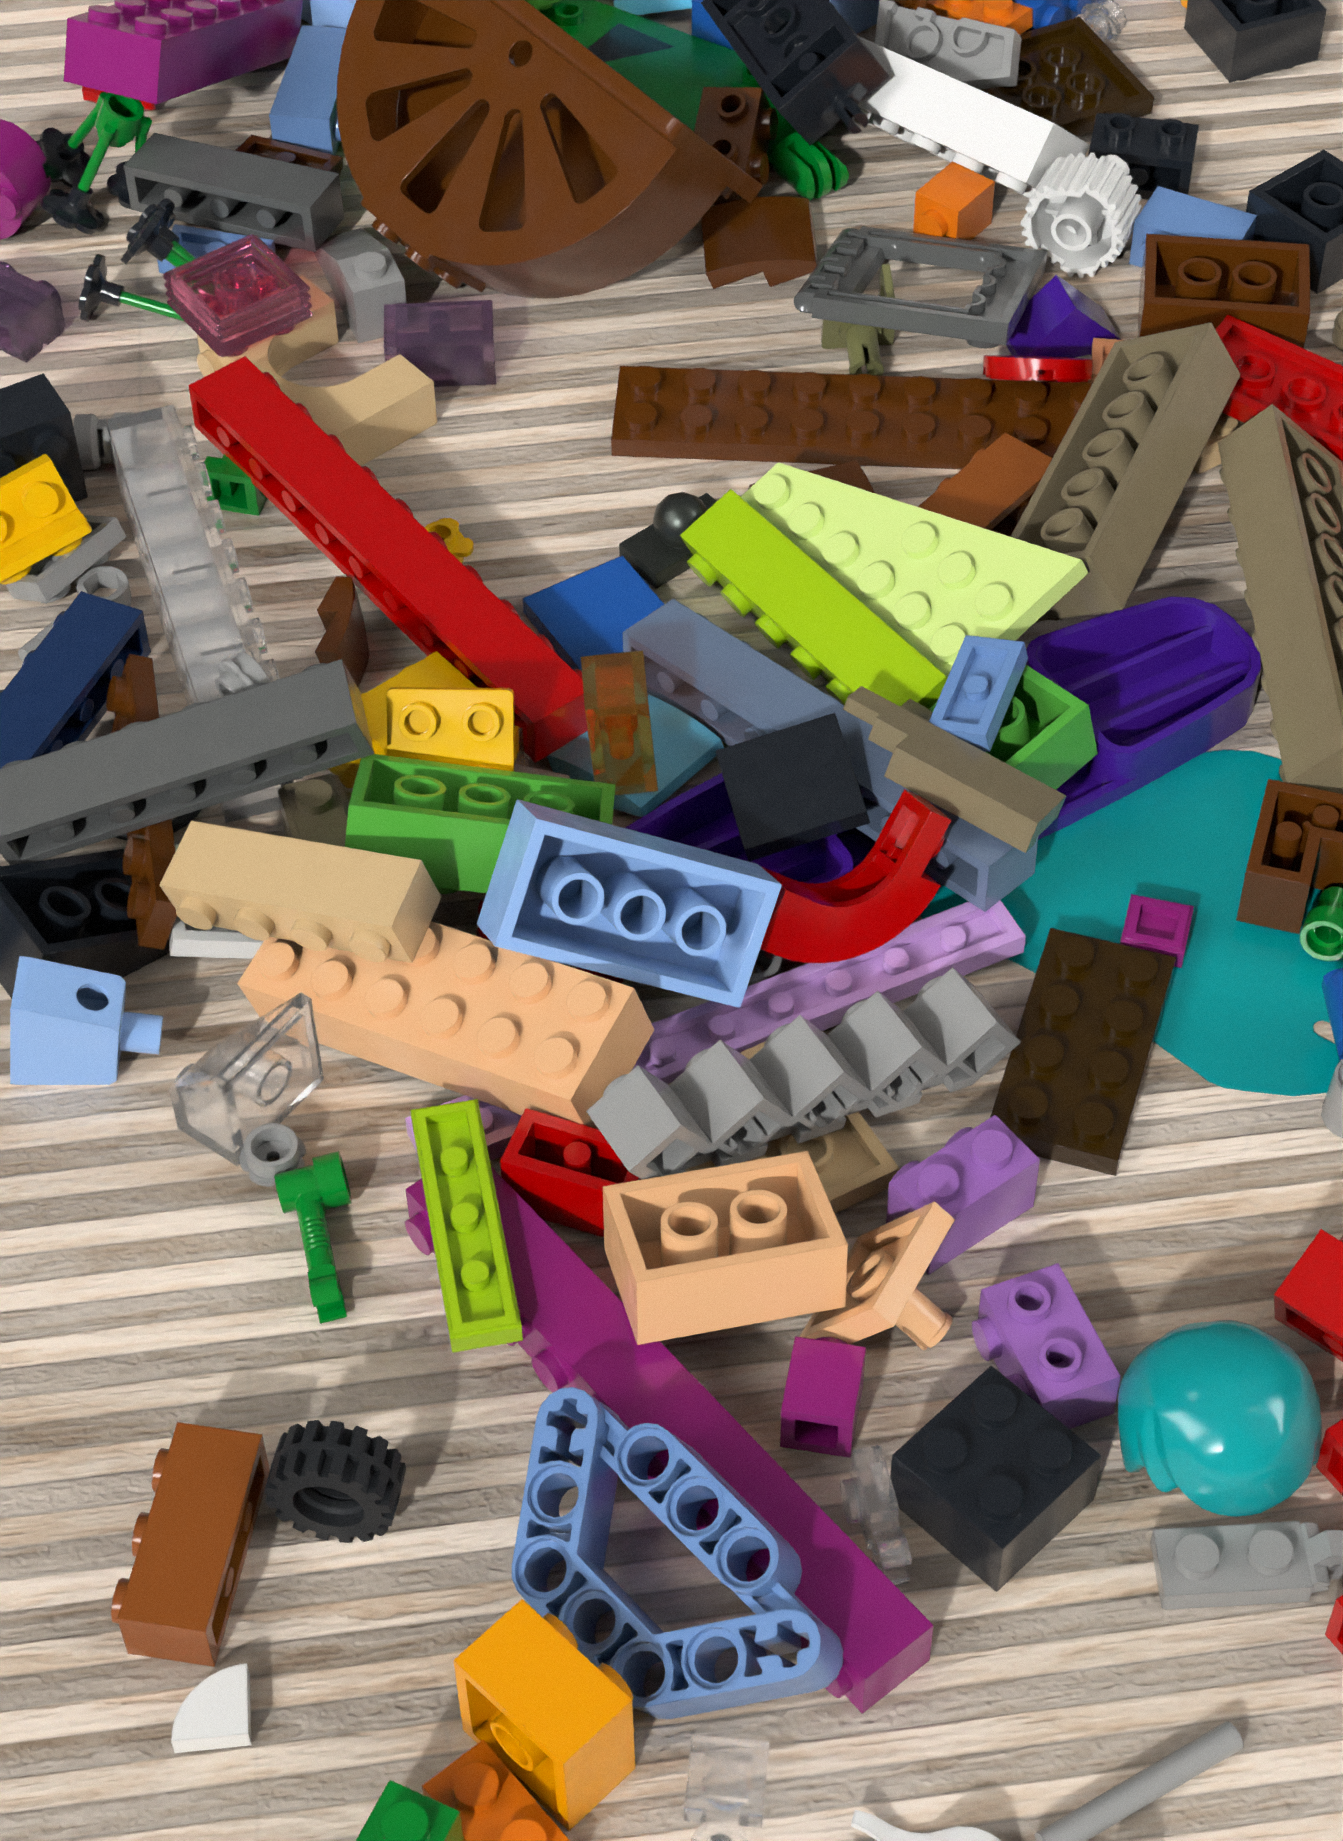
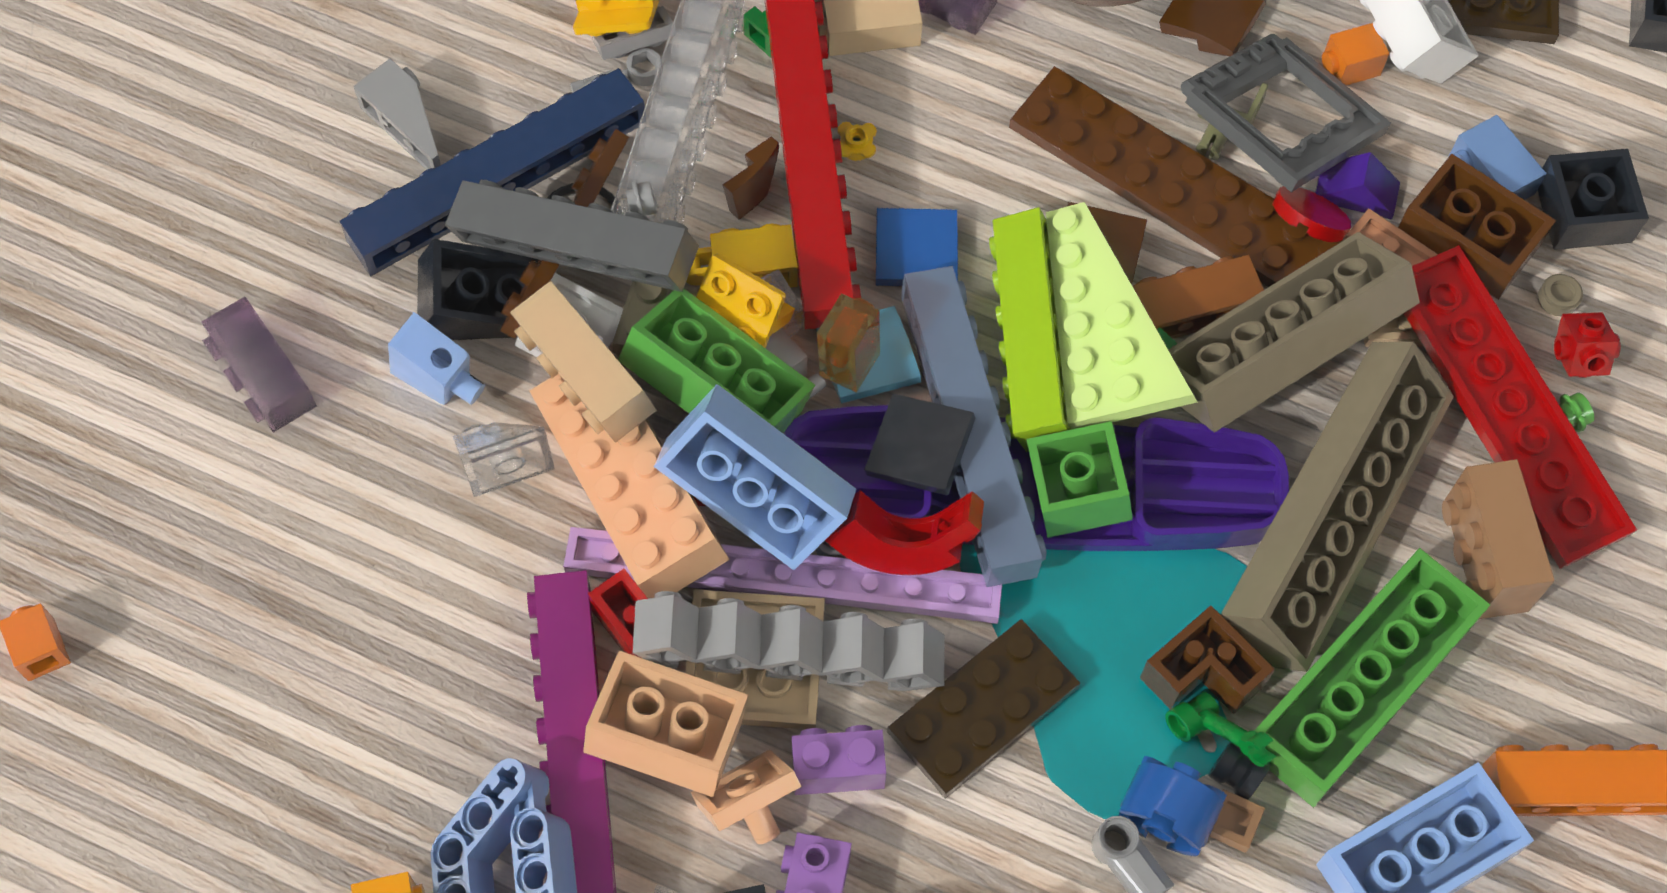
camera: 30 degrees right, 15 degrees up
(192, 1544) = (297, 717): dark orange brick -> none
(215, 1713) = (252, 819): white tile -> none
(270, 1142) = (485, 496): light grey plate -> none
(311, 1193) = (495, 540): green brick -> none
(335, 1481) = (383, 730): black tyre -> none
(466, 1226) = (546, 620): lime tile -> none
(658, 550) = (1003, 201): pearl dark grey tile -> none
(822, 1396) = (675, 836): magenta brick -> none
(956, 772) = (1013, 493): dark tan piece -> none
(980, 689) = (1068, 447): medium blue plate -> none
(1082, 212) = (1430, 108): white brick -> none
(1154, 149) = (1513, 80): black brick -> none
(1157, 926) = (1087, 656): magenta tile -> none

